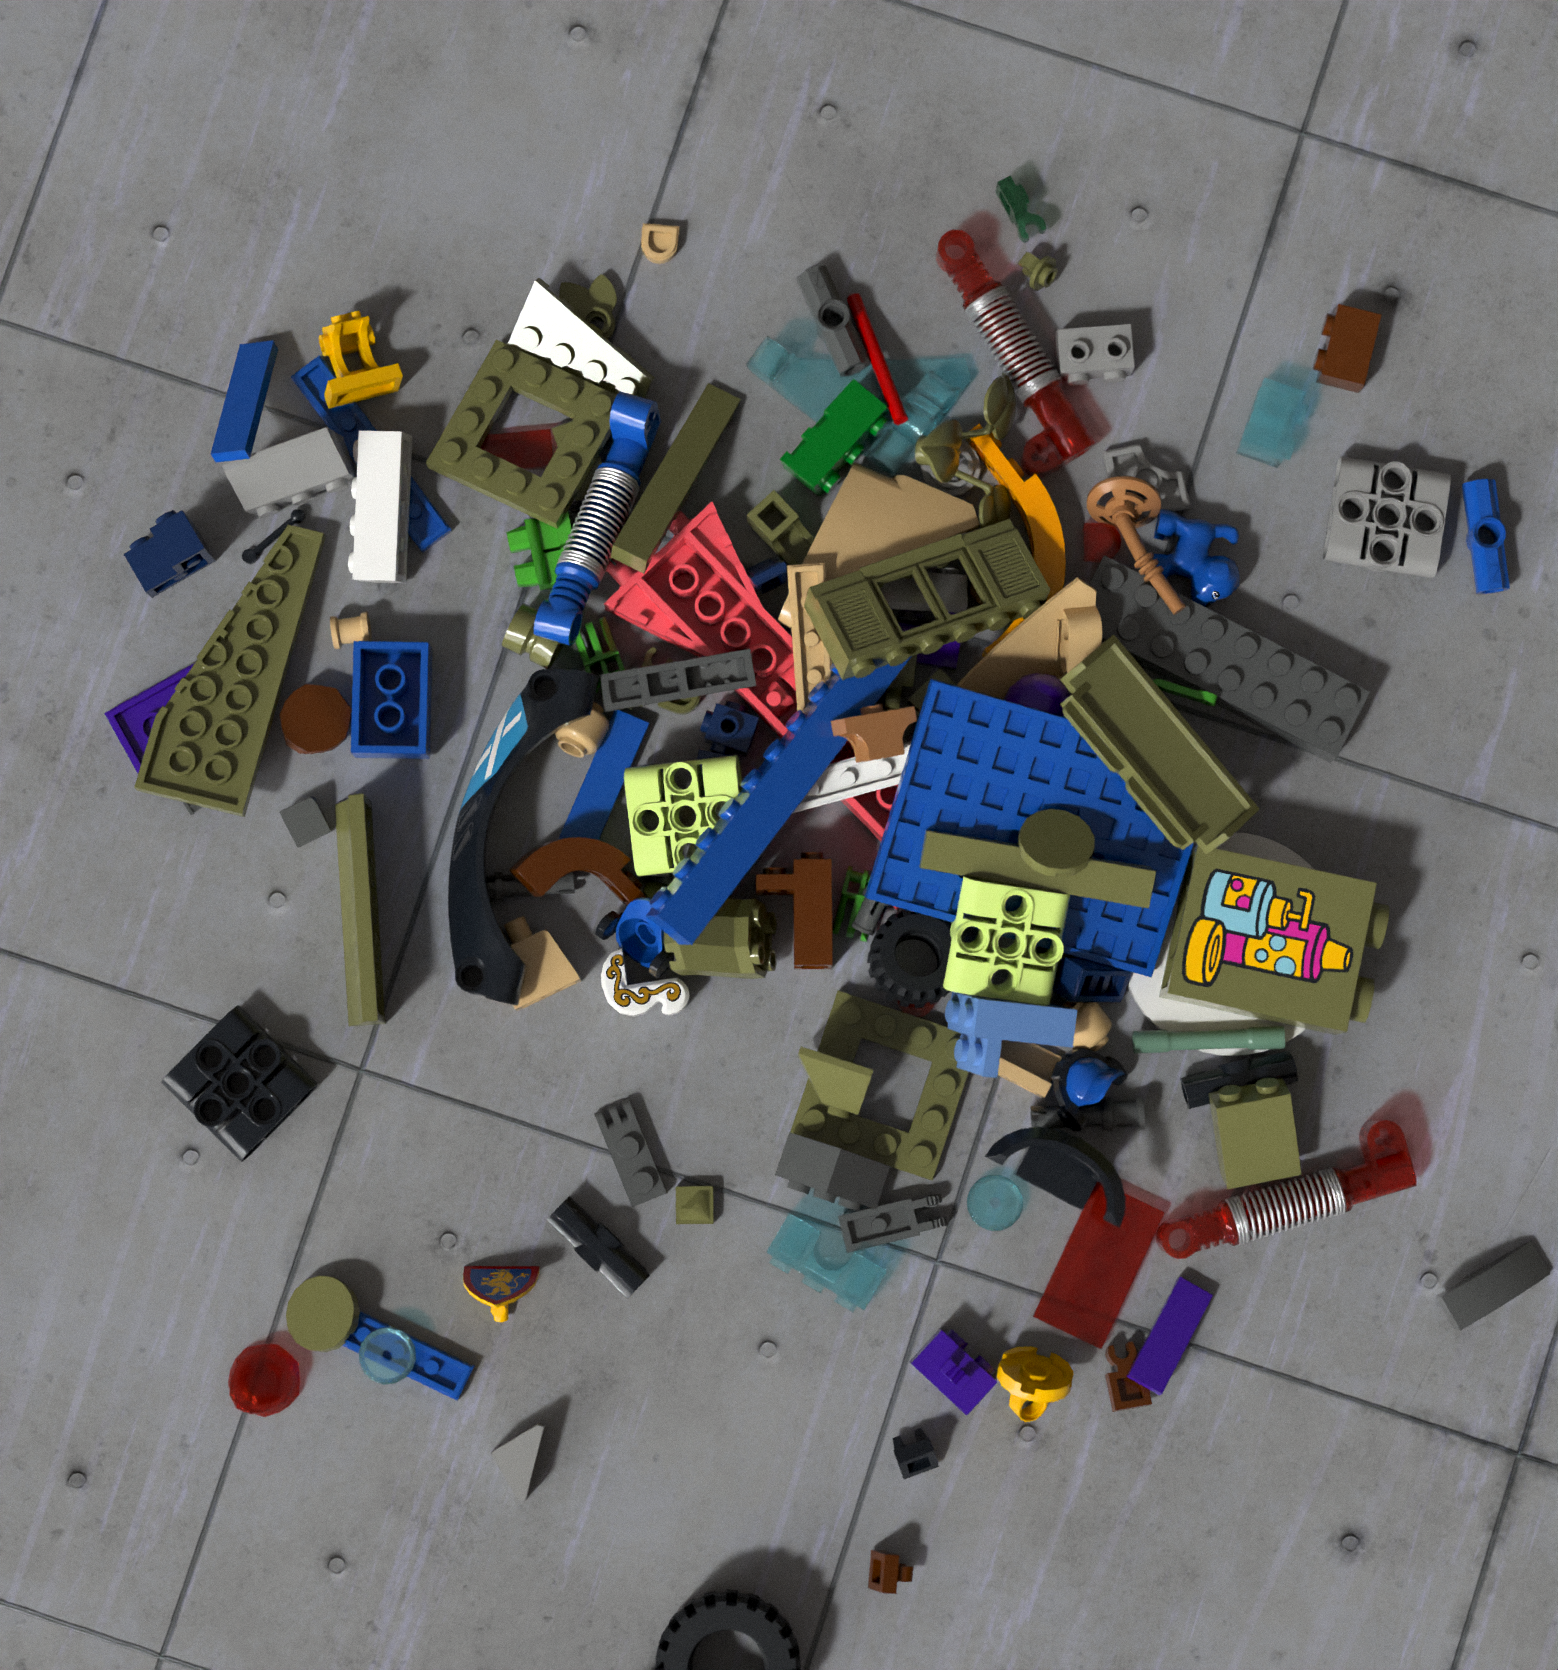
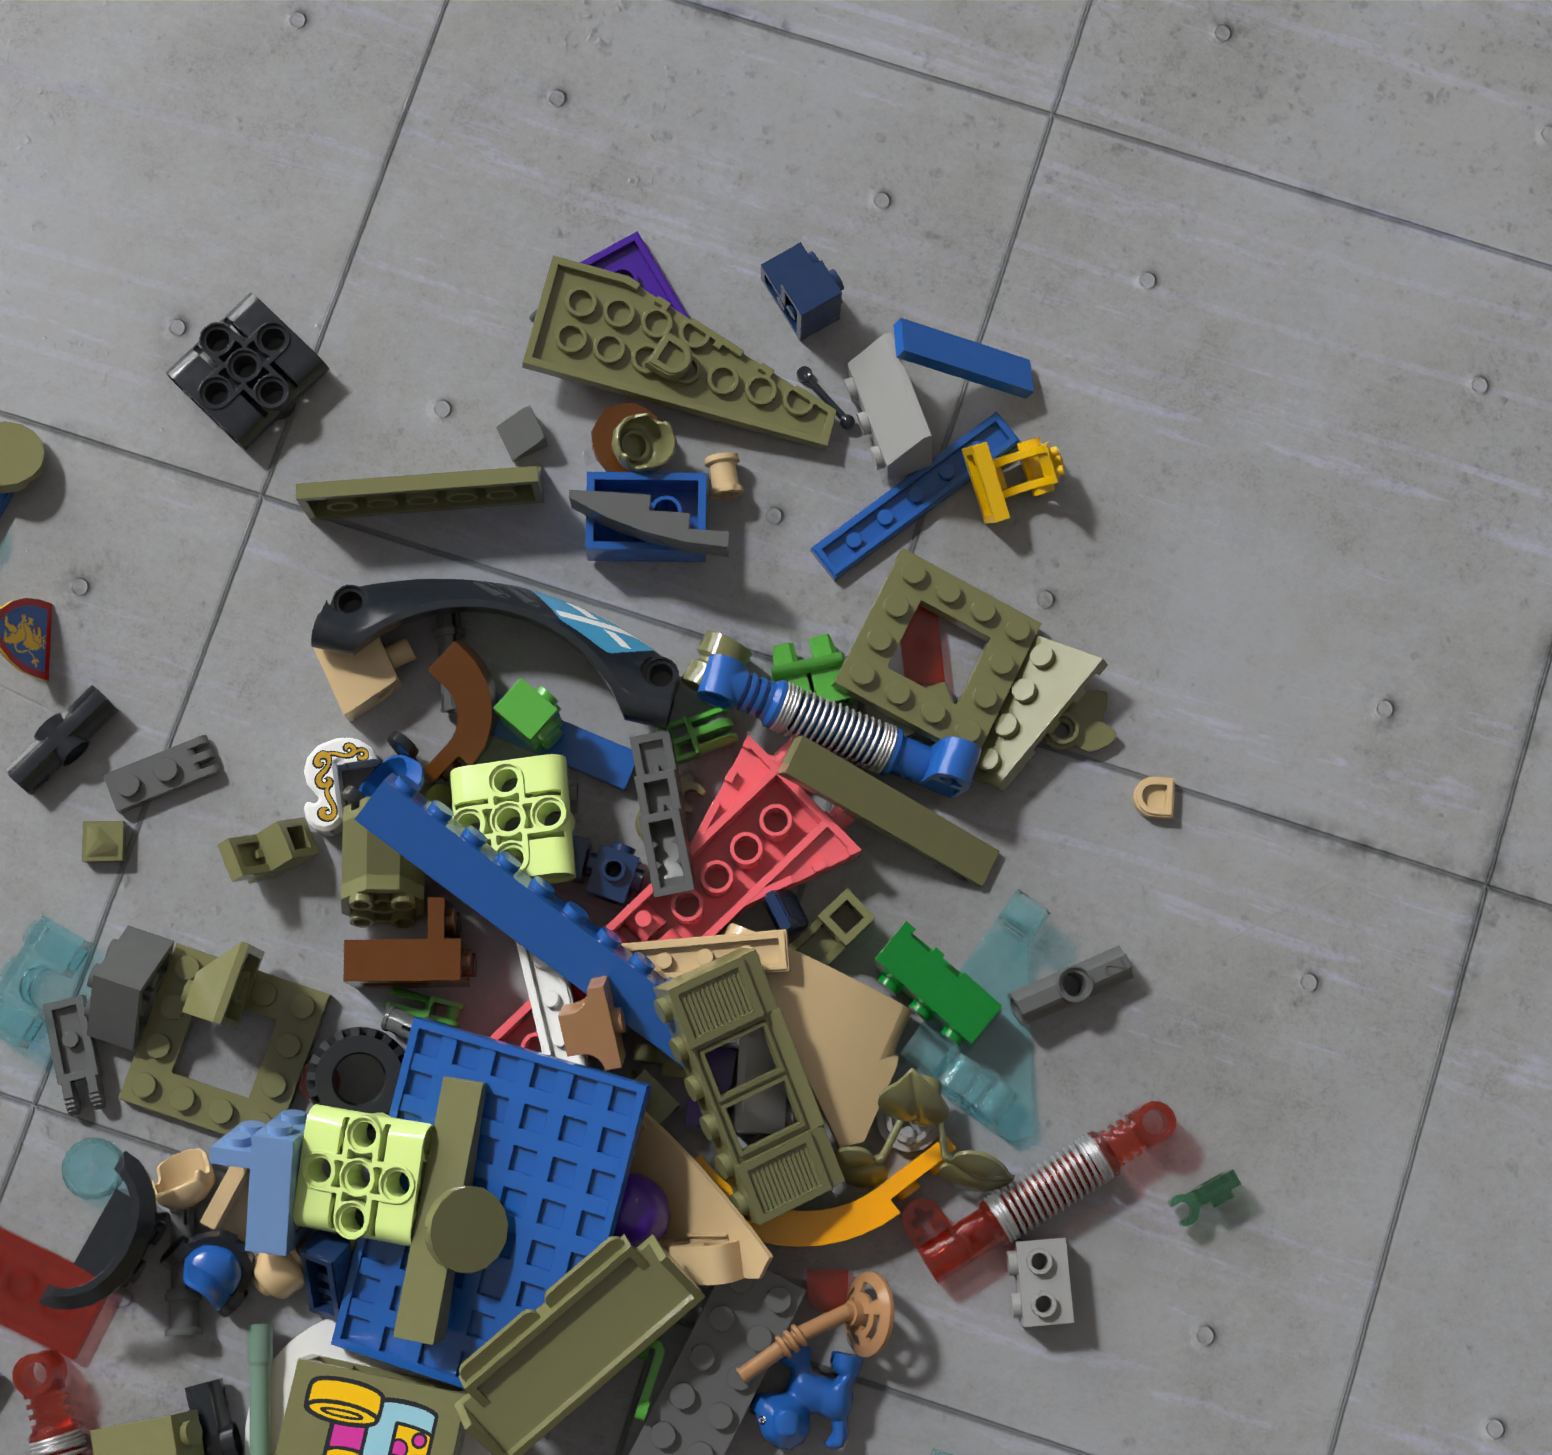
camera: 90 degrees right, 5 degrees down
(238, 675) = (670, 358): none -> olive tile
(324, 699) = (643, 443): none -> olive hair
(381, 506) = (854, 503): white brick -> none
(399, 703) = (634, 516): none -> dark grey slope
(585, 734) = (609, 722): tan head -> none
(585, 801) = (531, 715): none -> bright green brick
(706, 1046) = (269, 852): none -> olive brick
(877, 359) = (1028, 1034): red bar -> none
(1004, 1112) = (184, 1179): none -> tan hair
(1040, 272) = (1133, 1221): olive plate -> none
(1133, 463) = (913, 1324): light grey tile -> none

